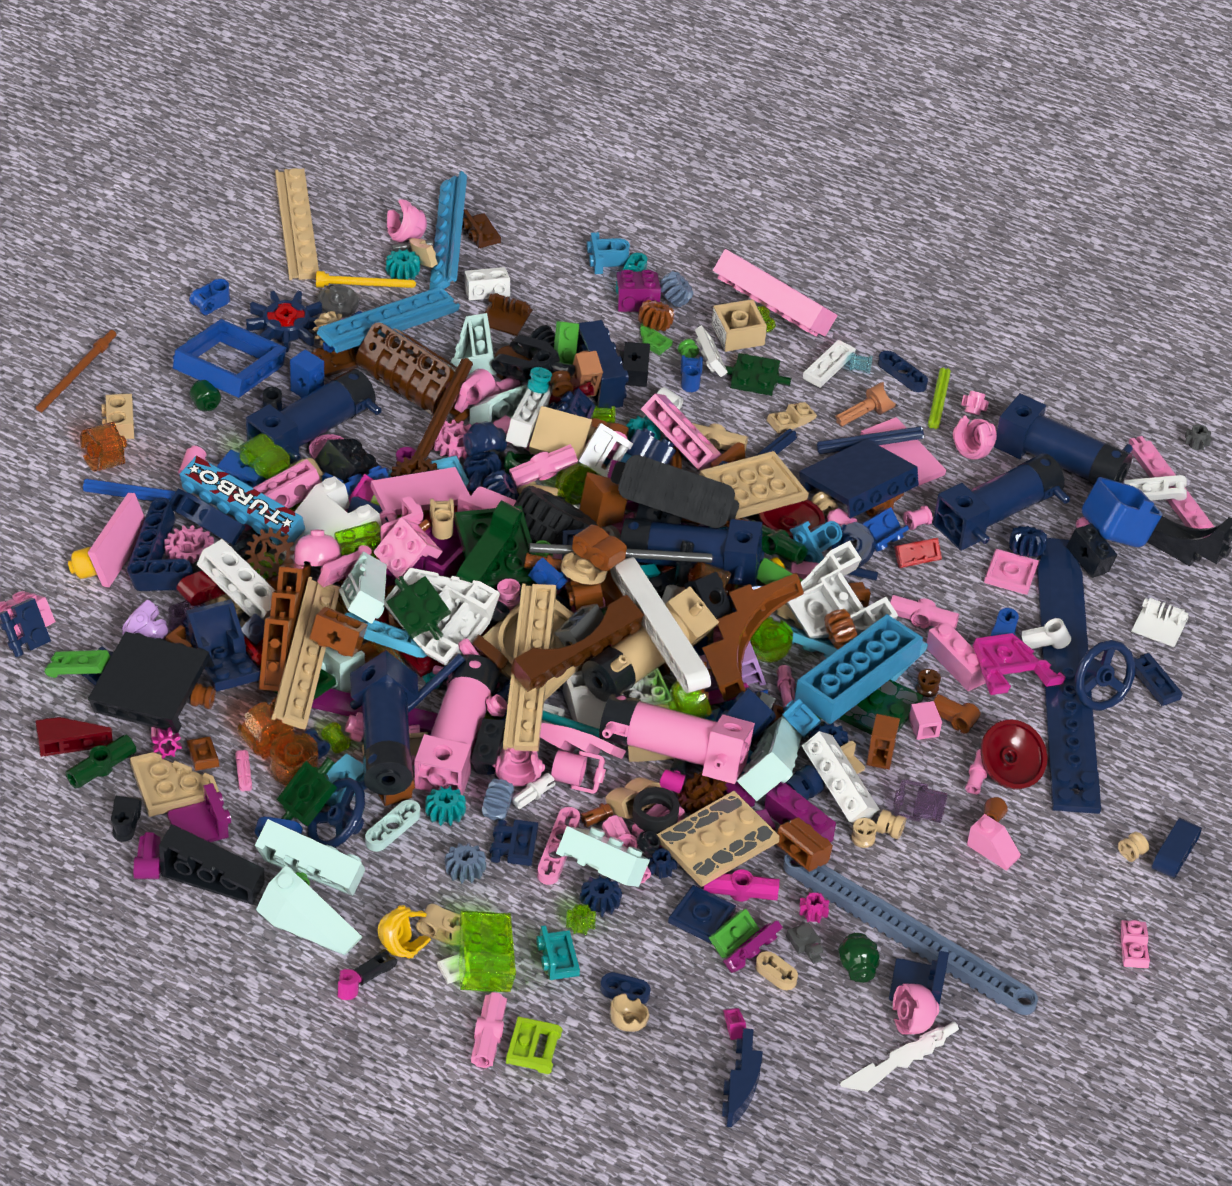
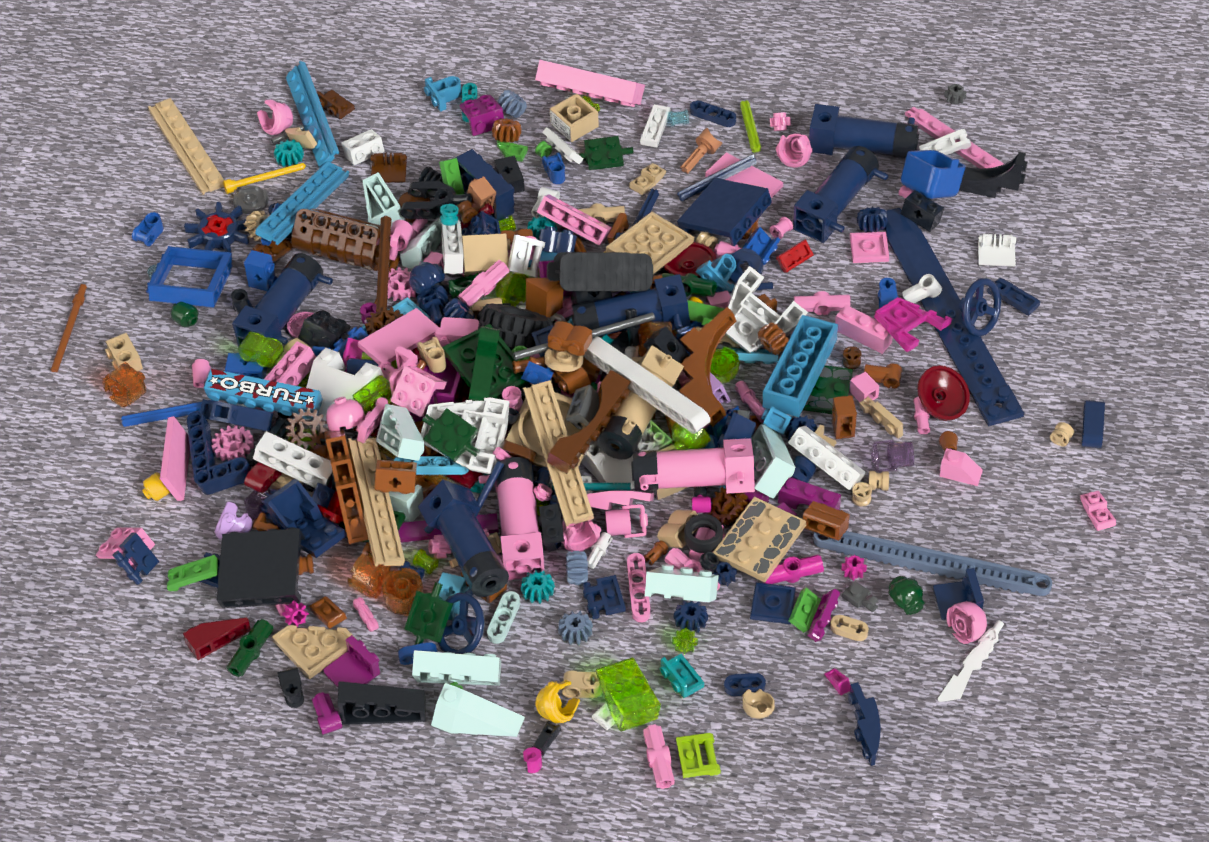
camera: 15 degrees left, 5 degrees up
(930, 756) = (883, 416): none -> tan hinge

